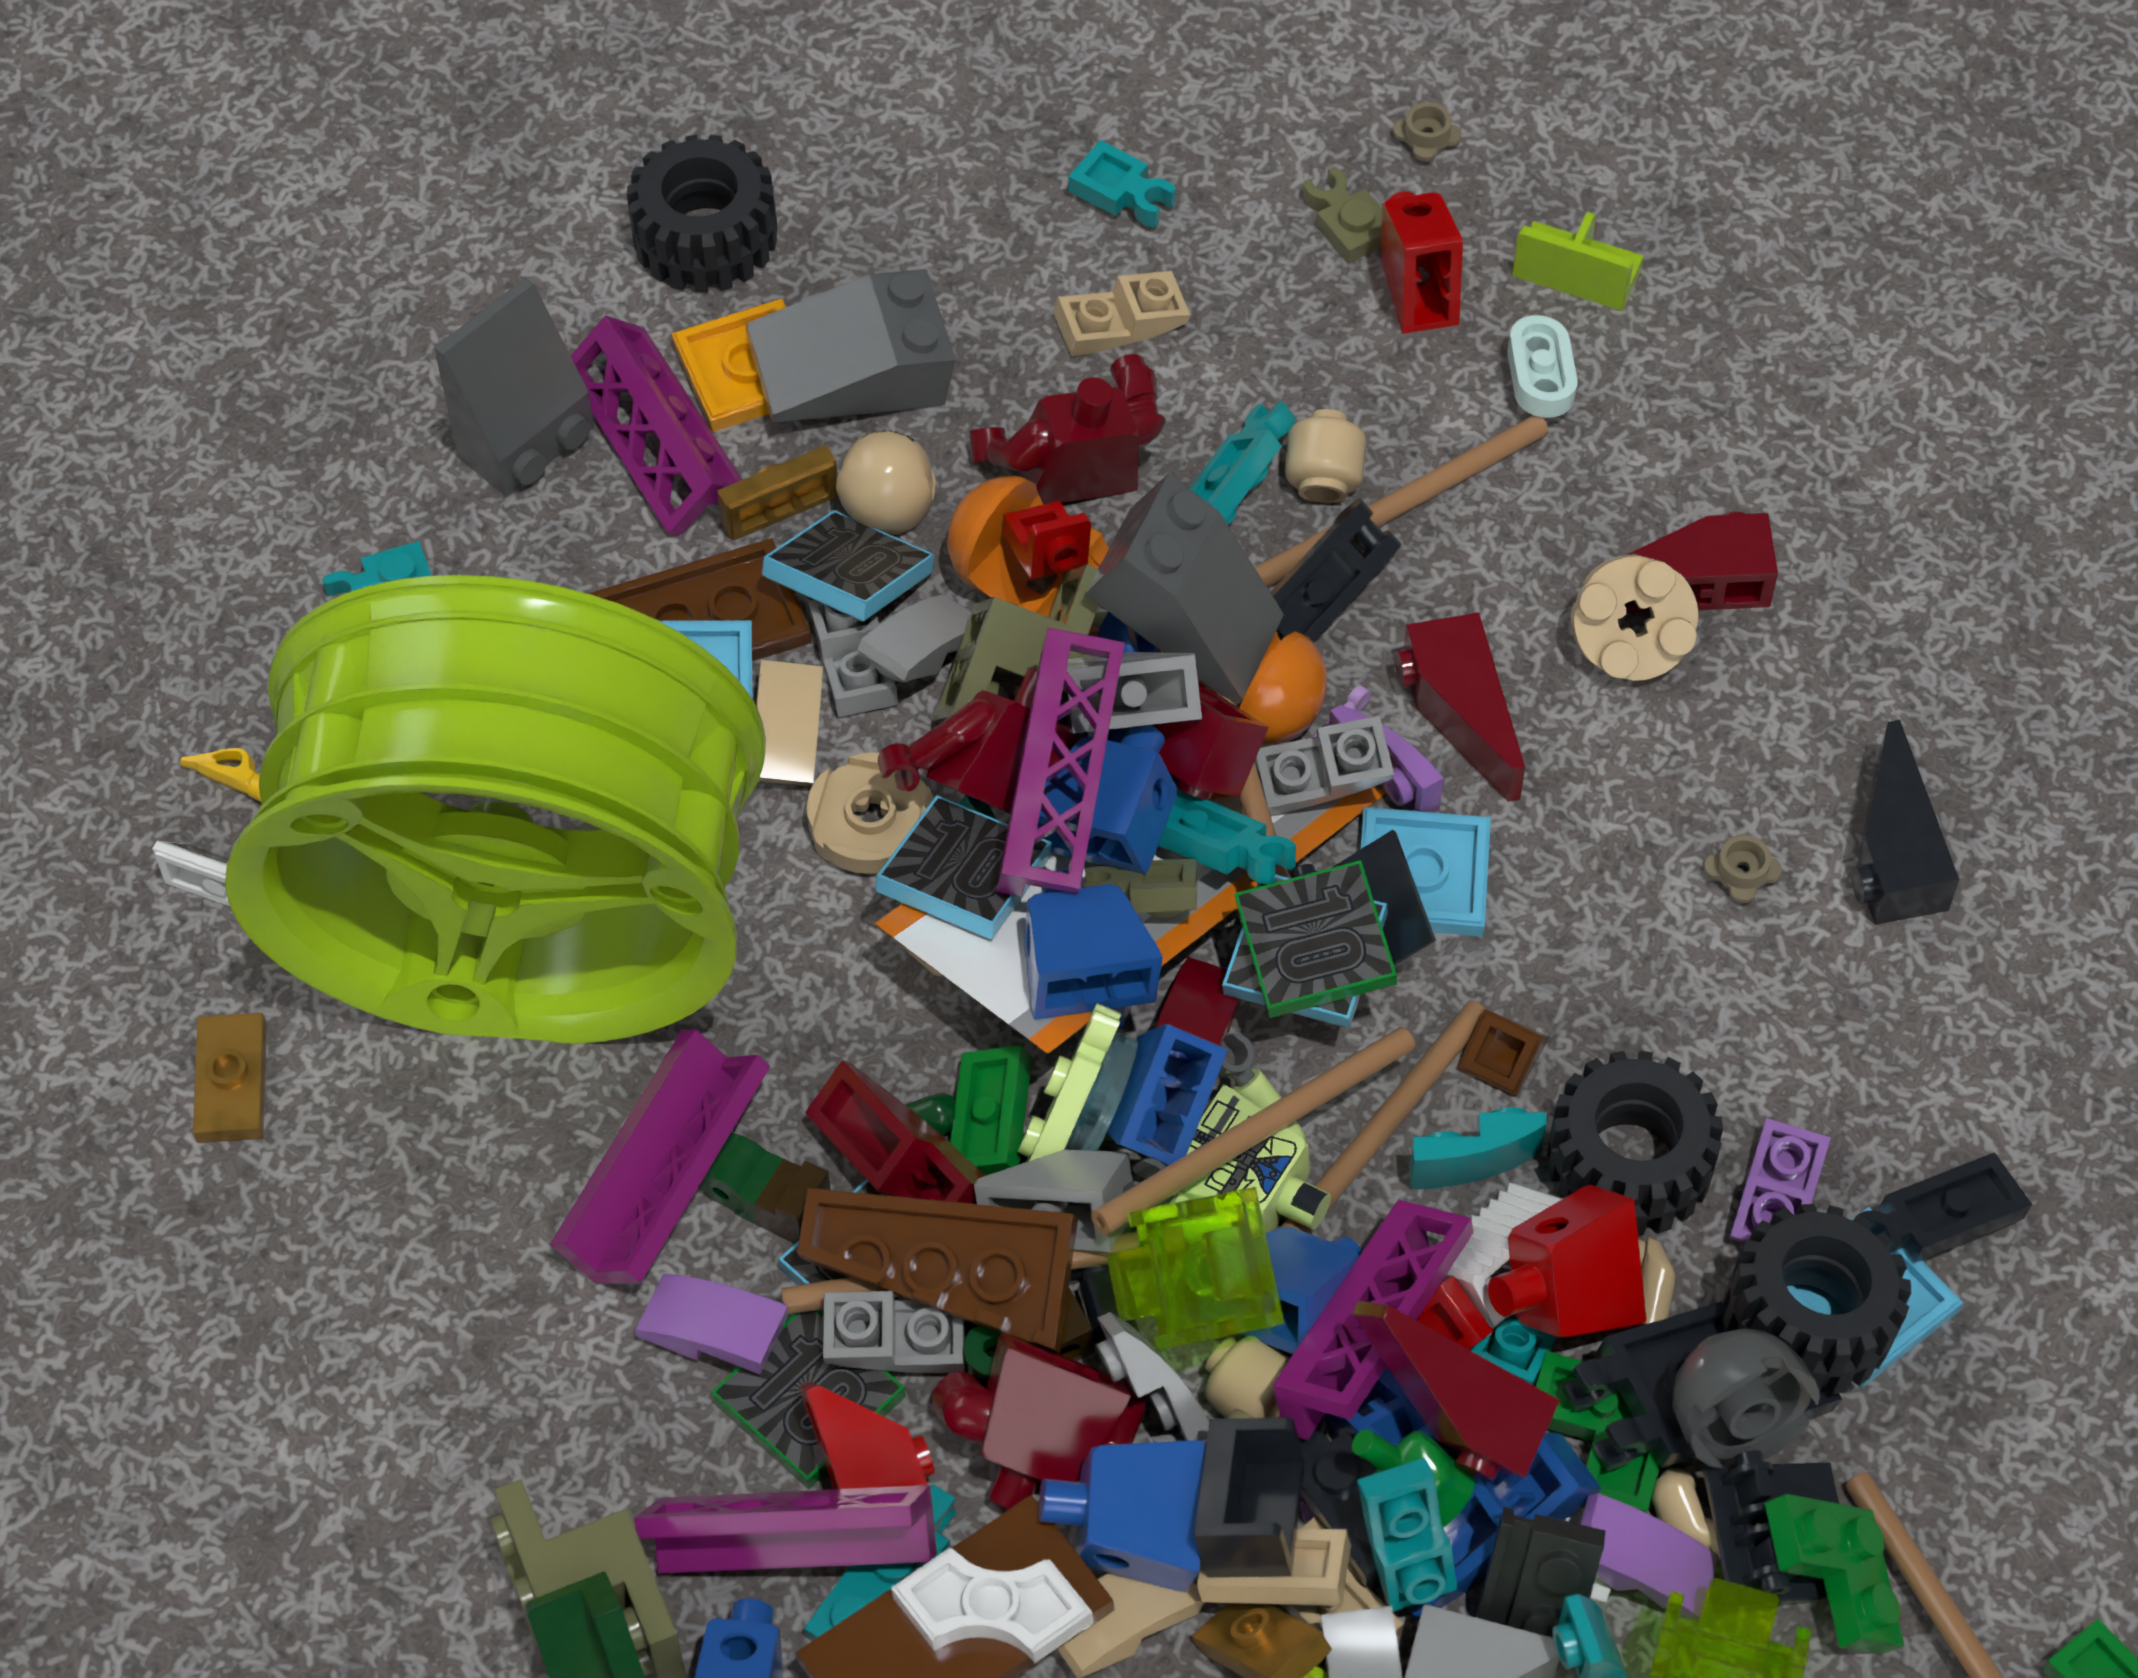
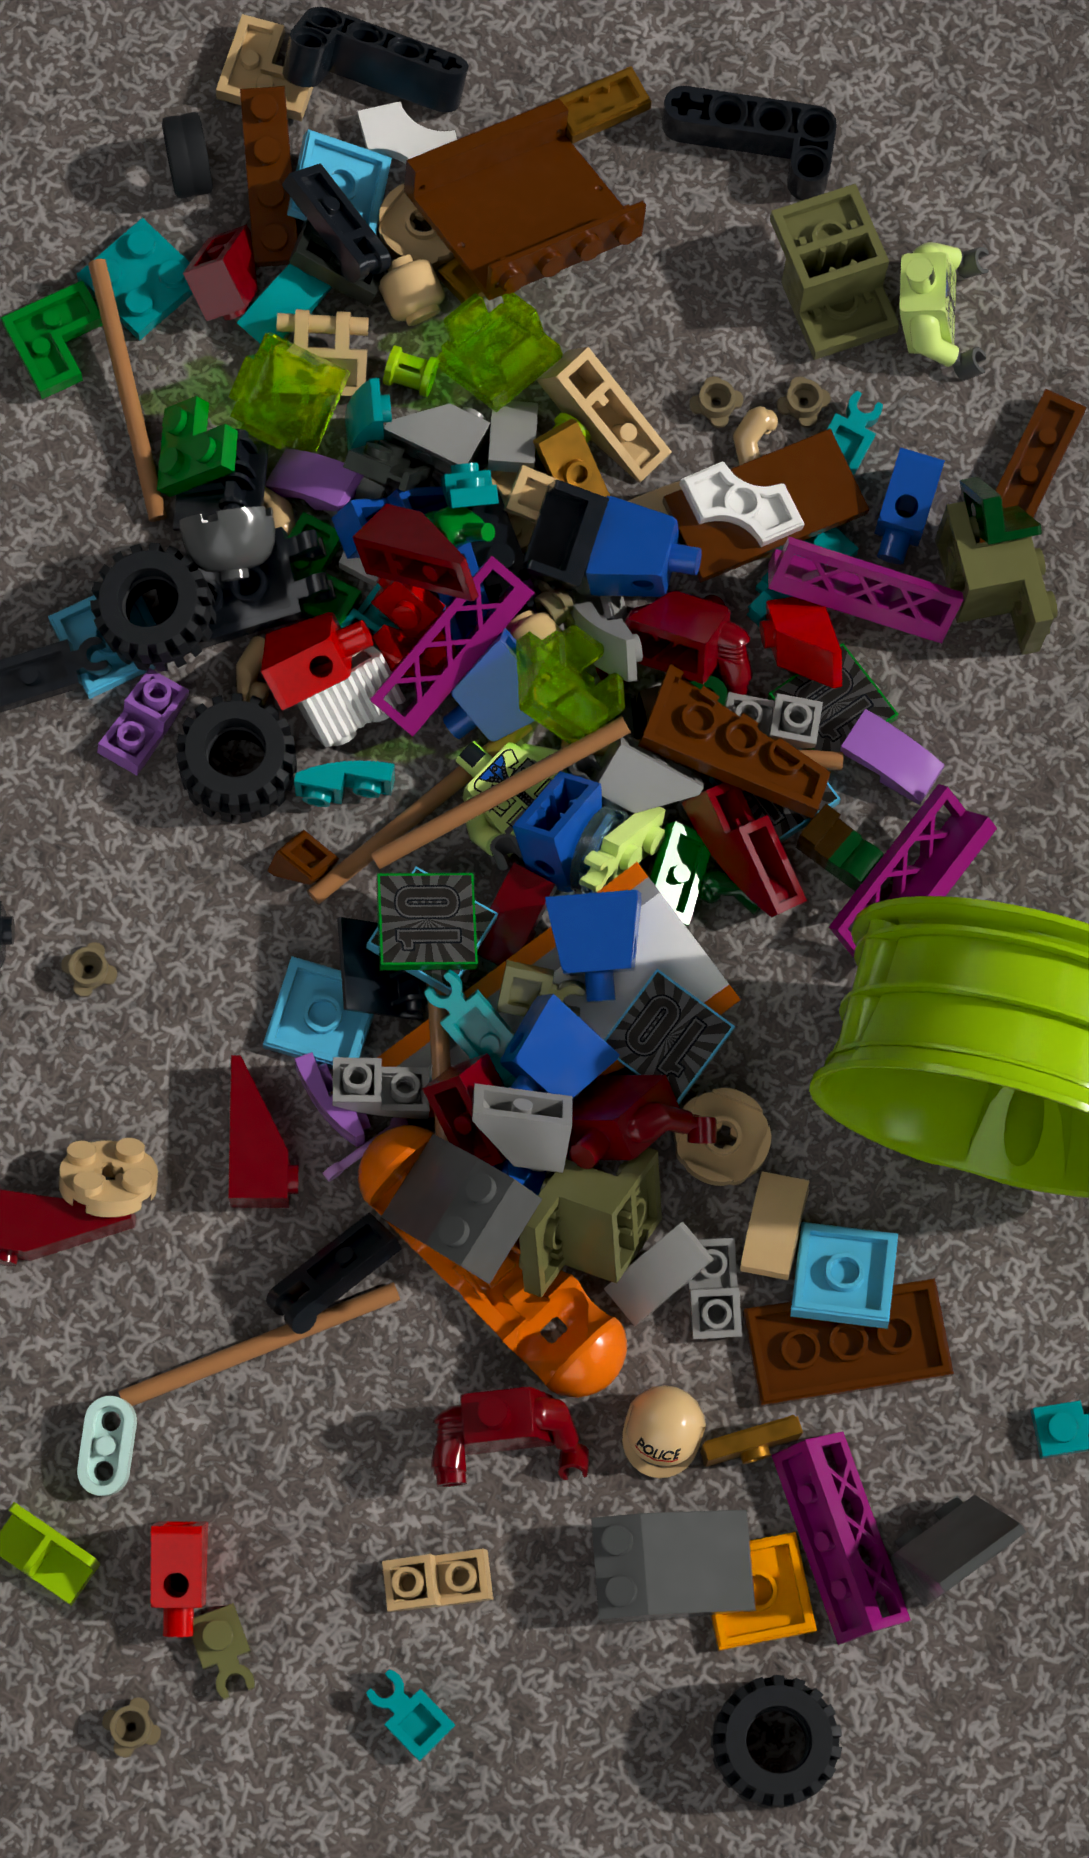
camera: 175 degrees left, 15 degrees up
(848, 565) = (707, 1351): tile -> none
(1035, 758) = (604, 1068): magenta fence -> none
(1048, 539) = (550, 1319): red bracket -> none
(1243, 459) = (383, 1391): teal plate -> none
(1325, 456) = (306, 1387): tan head -> none

